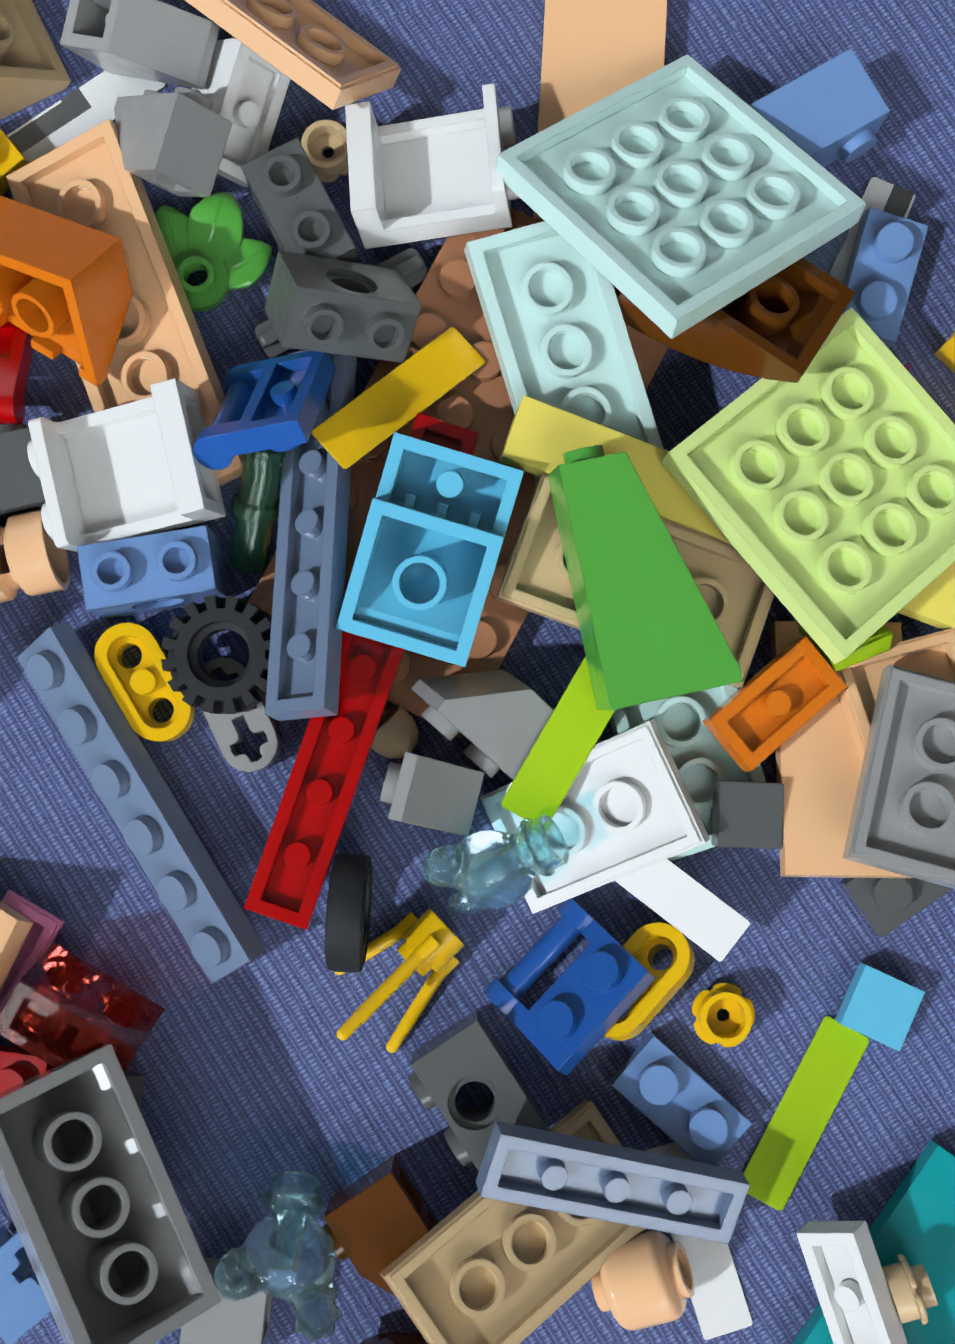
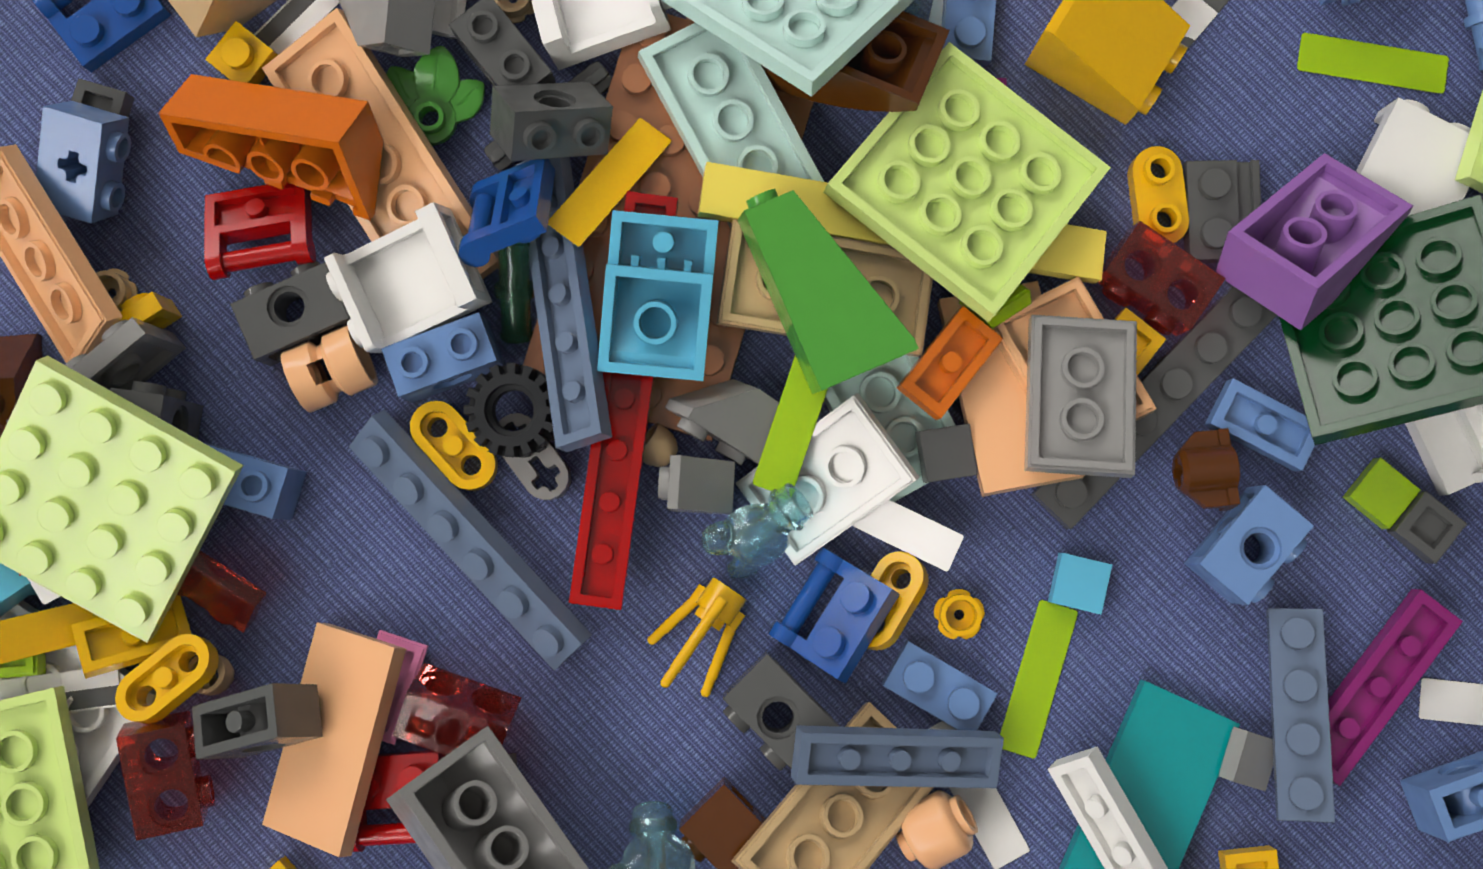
camera: 10 degrees left, 0 degrees up
(348, 912) = (650, 591): black tyre -> none
(910, 1290) = (1142, 793): tan plate -> none

